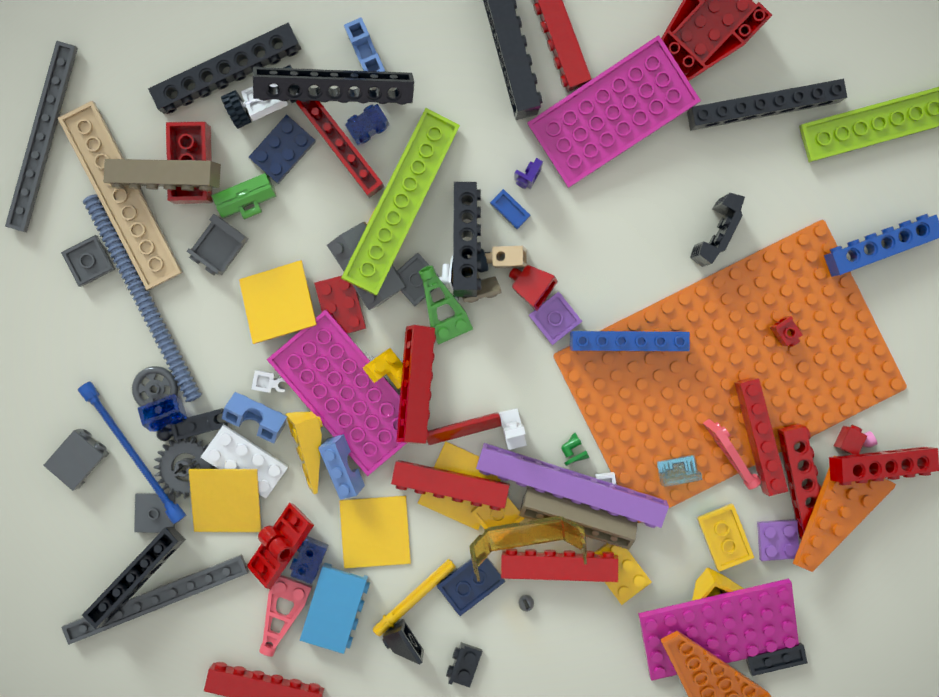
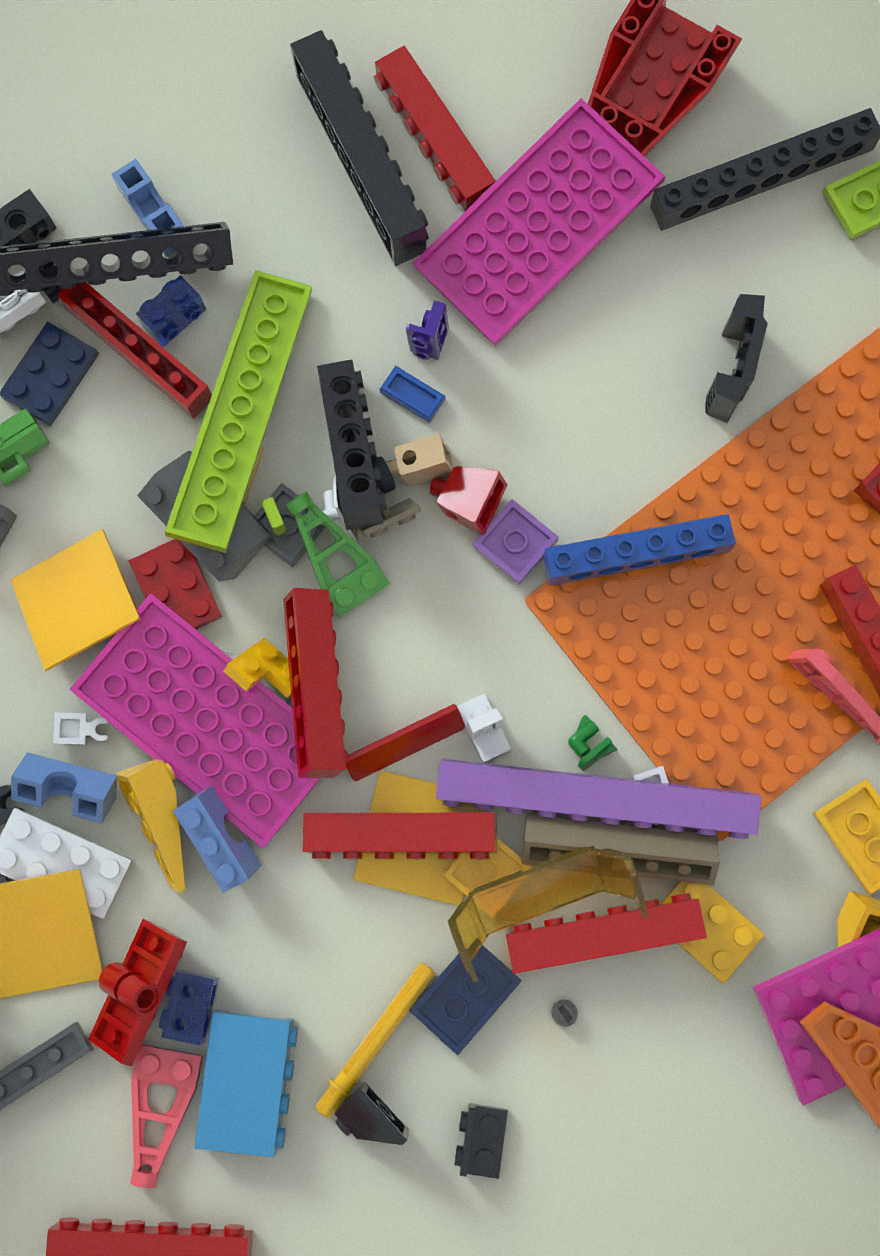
camera: 10 degrees left, 10 degrees down
(375, 531) = (291, 942): yellow piece -> none
(409, 275) = (274, 516): none -> lime tile
(678, 471) = (764, 740): clear light blue panel -> none

